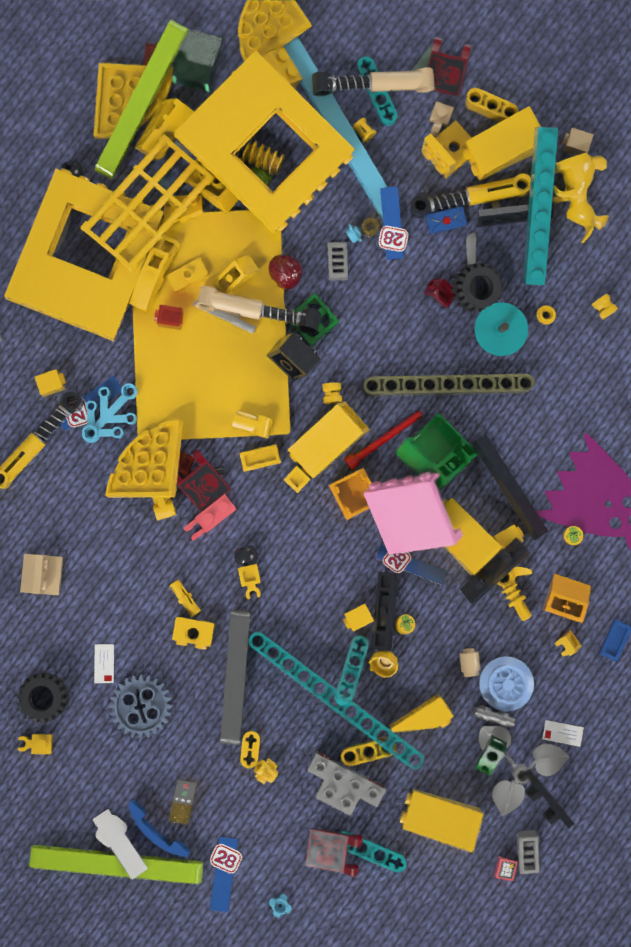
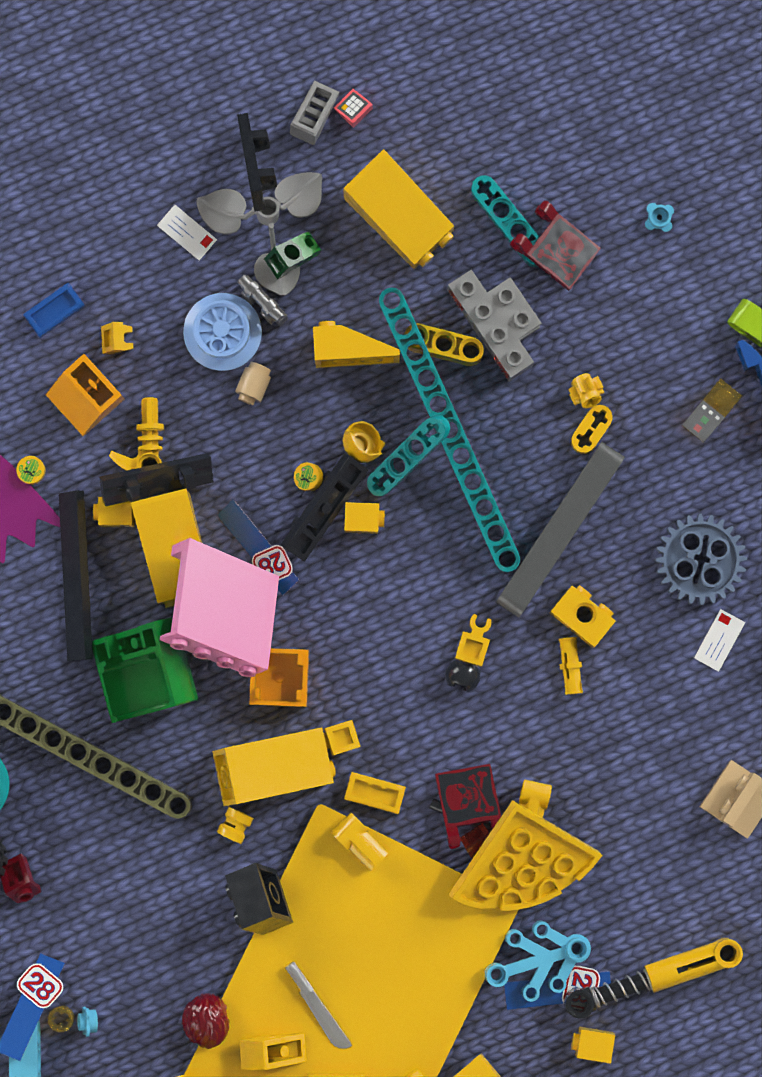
camera: 155 degrees left, 0 degrees up
(169, 317) = (391, 1044): clear red brick -> none
(210, 300) = (322, 1034): piece -> none
(211, 516) = (478, 752): coral hinge -> none
(226, 862) = (697, 307): blue sticker -> none
(333, 321) = (190, 963): green piece -> none
(337, 275) = (139, 976): light grey slope -> none
(353, 460) = (256, 722): red piece -> none

